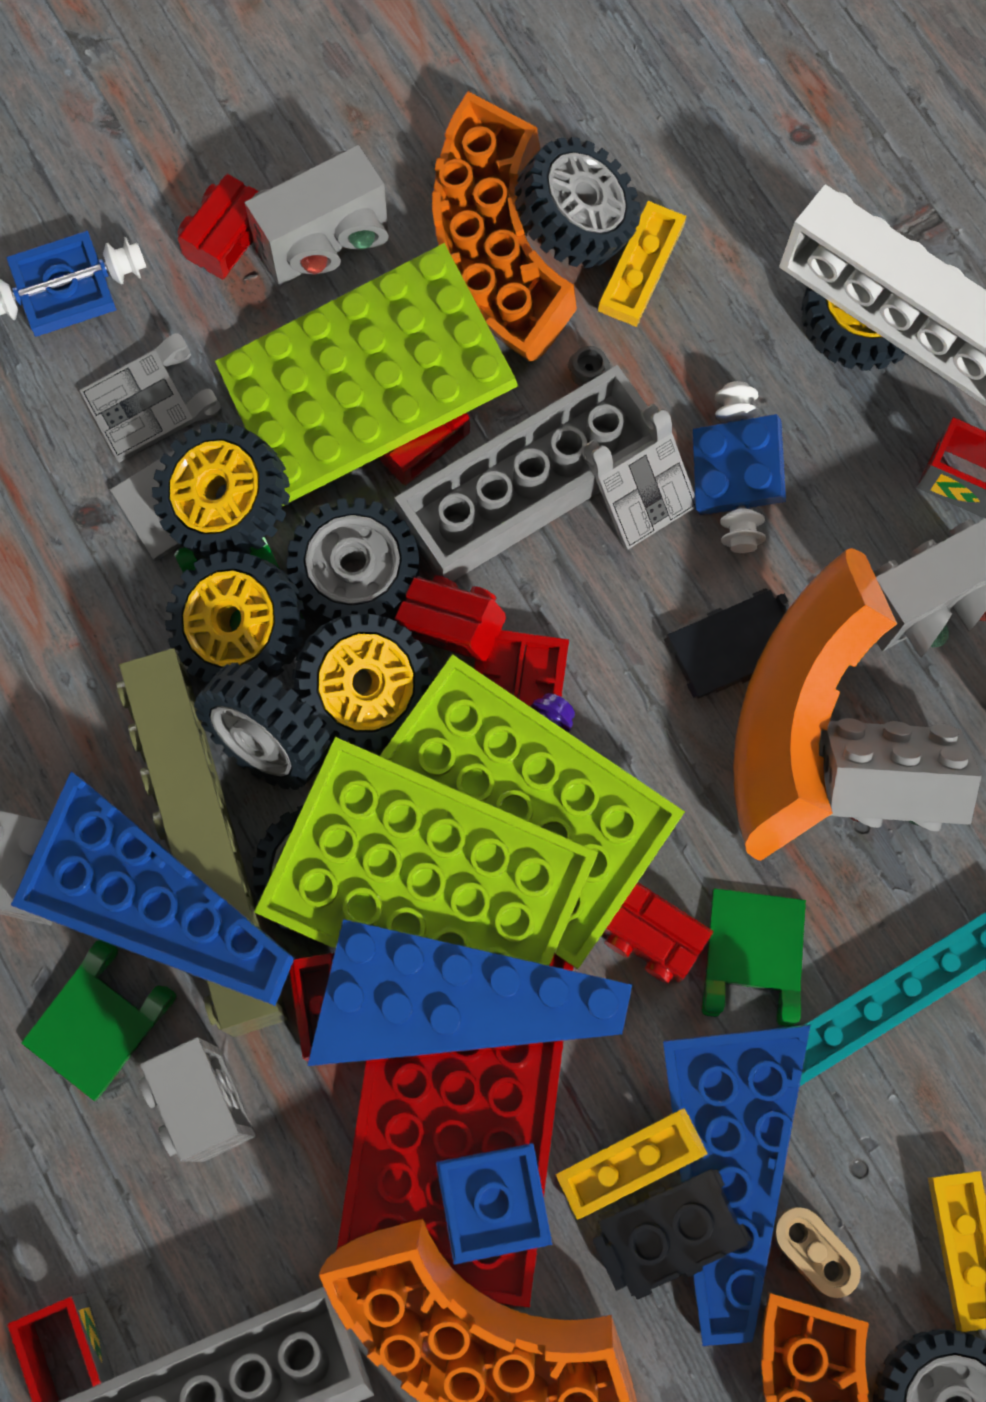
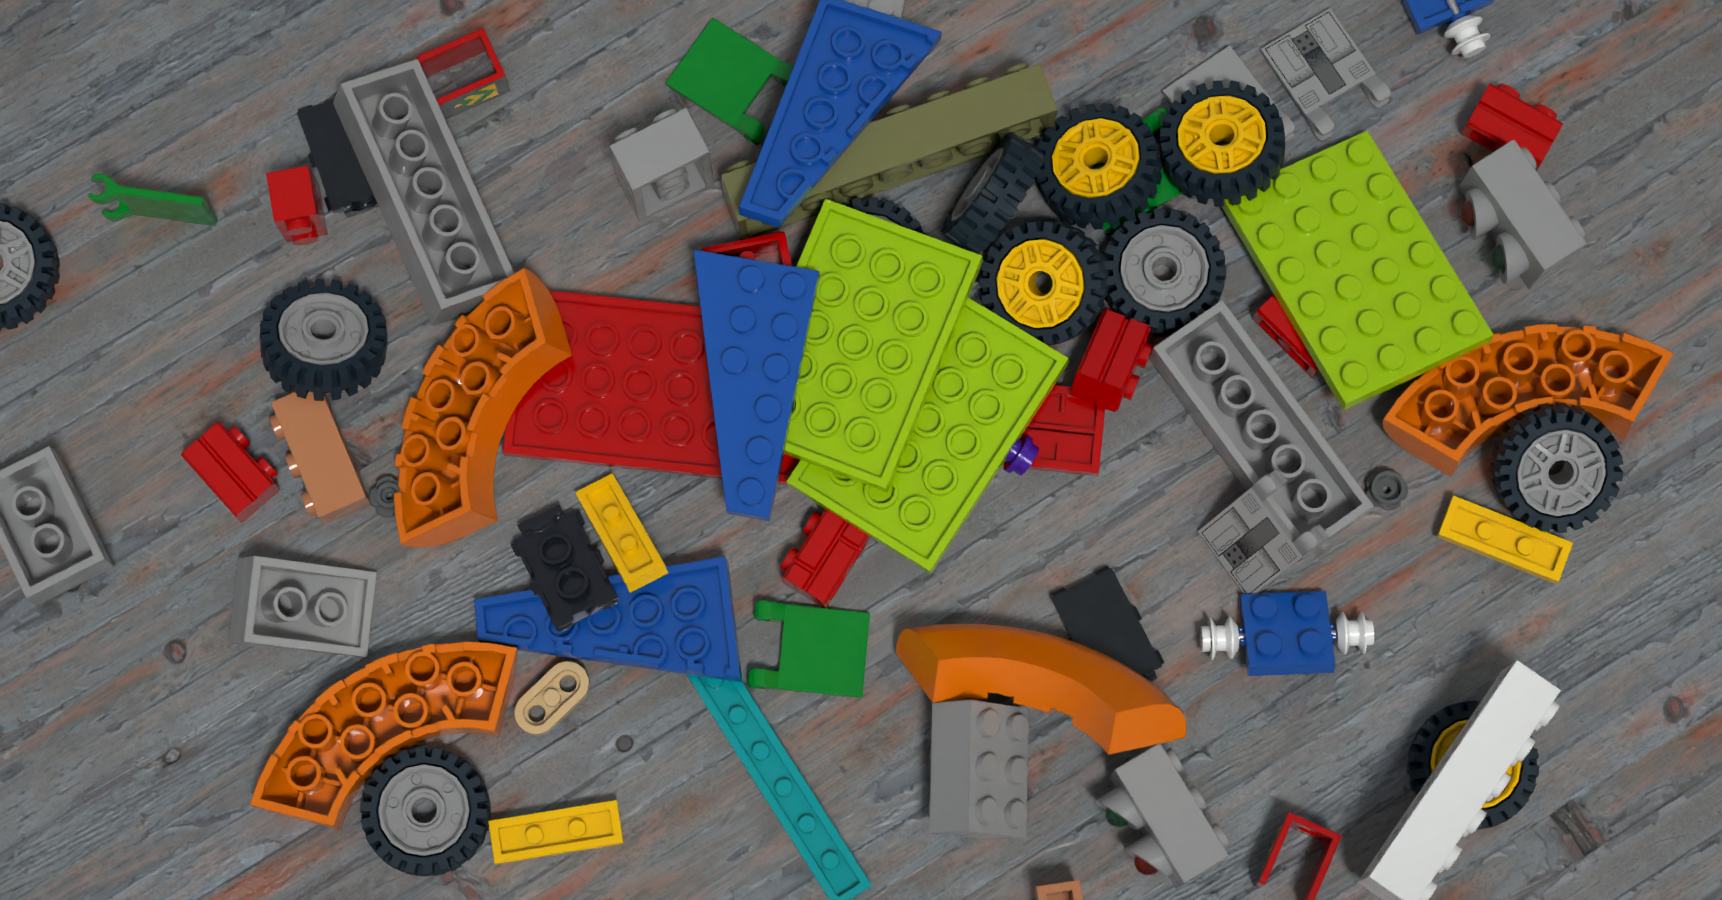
camera: 90 degrees right, 5 degrees up
(493, 1203) = (586, 418): blue tile -> none

